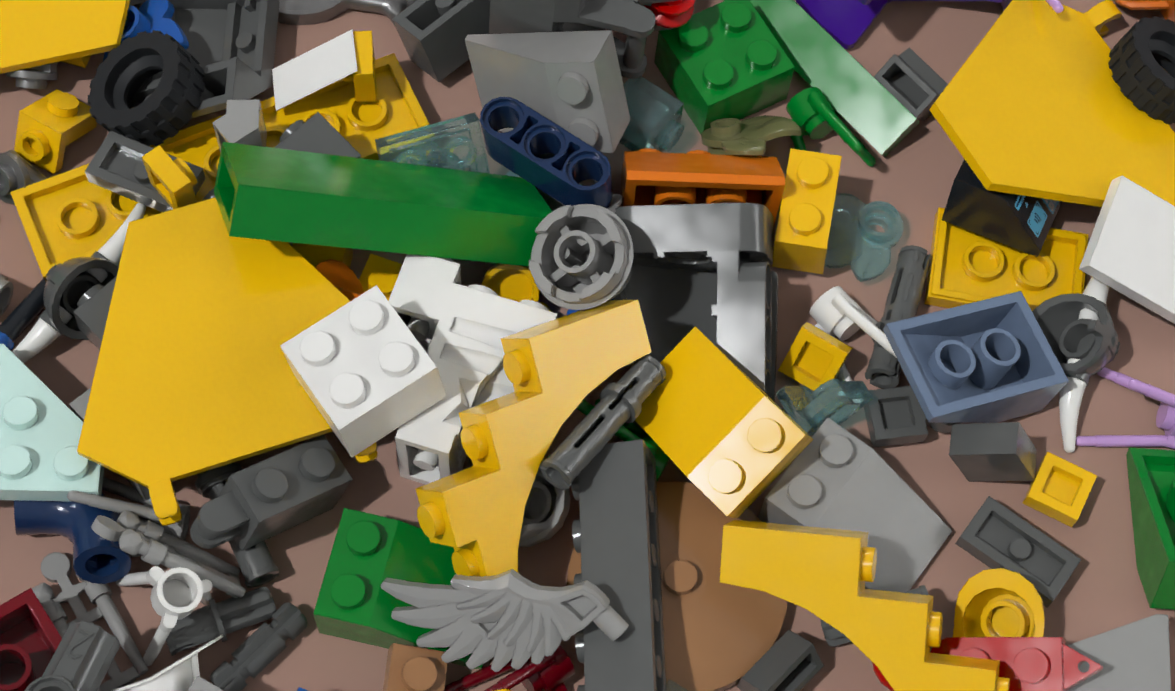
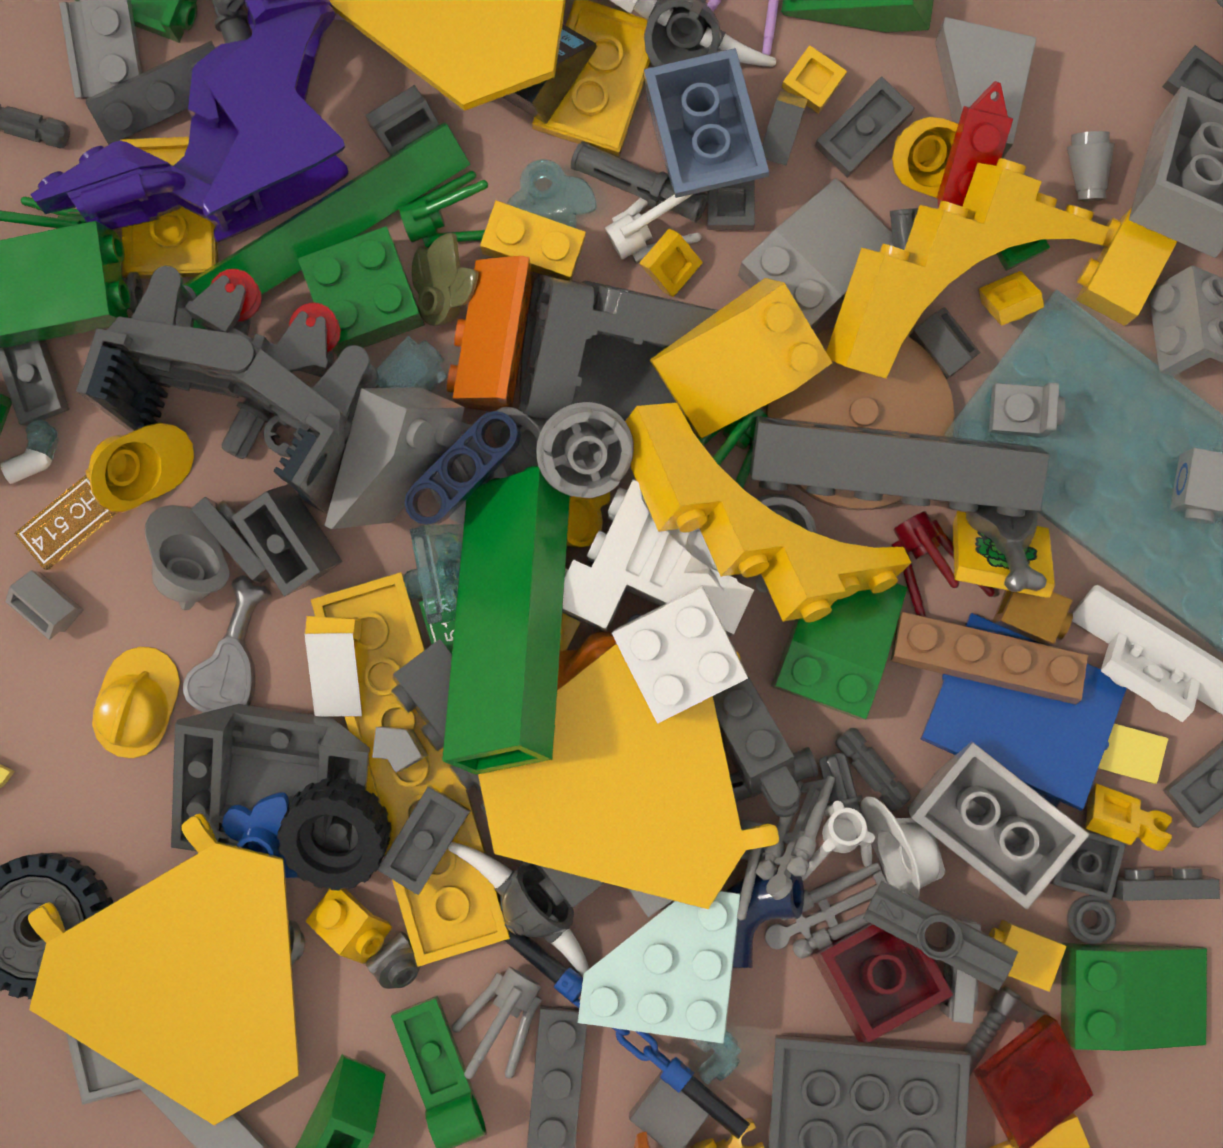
camera: 75 degrees left, 20 degrees up
(170, 177) = (448, 812): yellow plate -> none
(501, 616) = (895, 562): light grey animal -> none
(617, 405) = (776, 491): dark grey pin -> none
(832, 400) = (723, 267): clear light blue bracket -> none

